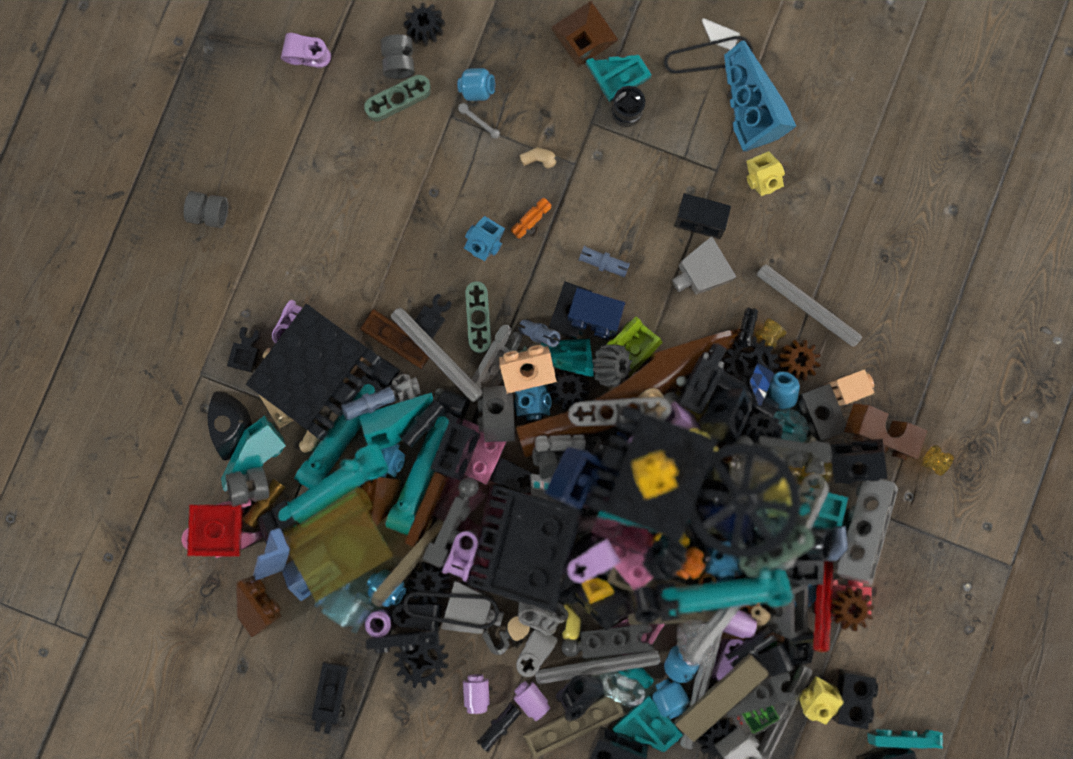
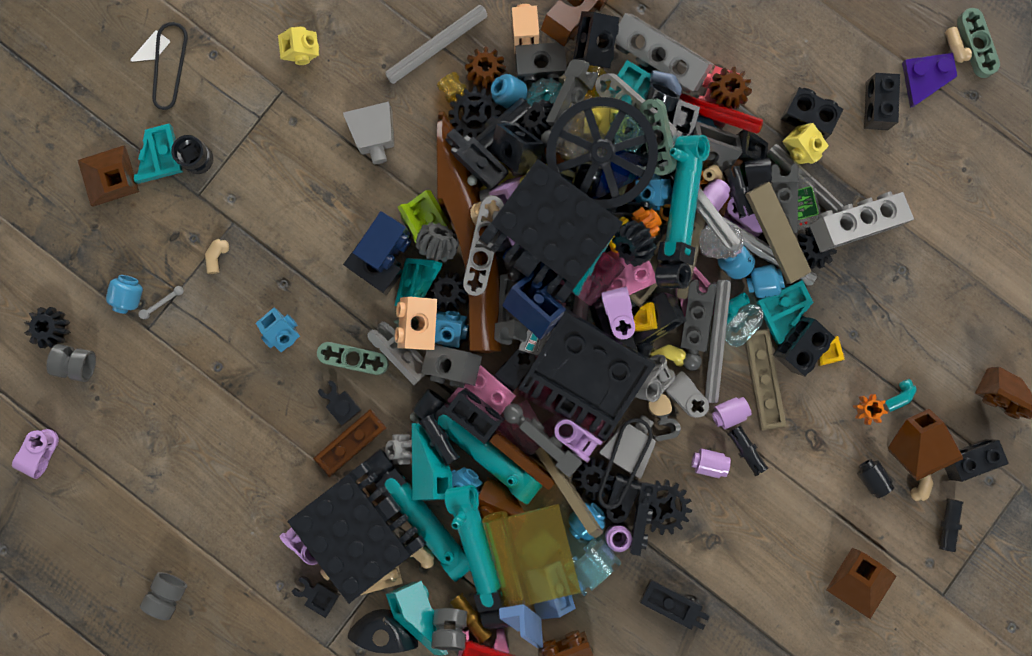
camera: 70 degrees left, 0 degrees up
(368, 403) = (403, 487): sand blue pin -> none
(416, 97) = (122, 380): sand green beam -> none
(436, 354) = (376, 408): light grey axle -> none
(531, 218) = (272, 280): orange axle -> none
(539, 332) = (385, 303): sand blue pin -> none
(559, 442) = (496, 313): light grey axle -> none
(579, 695) = (739, 365): black piece -> none
(604, 261) = (336, 222): sand blue pin -> none
(655, 474) = (552, 225): yellow brick -> none
(702, 216) = (321, 116): black hinge -> none
(747, 327) = (439, 106): black axle -> none
(757, 105) = (229, 33): dark azure wedge -> none
(760, 382) = (495, 108): sticker -> none
(907, 739) = (861, 77): teal hinge -> none

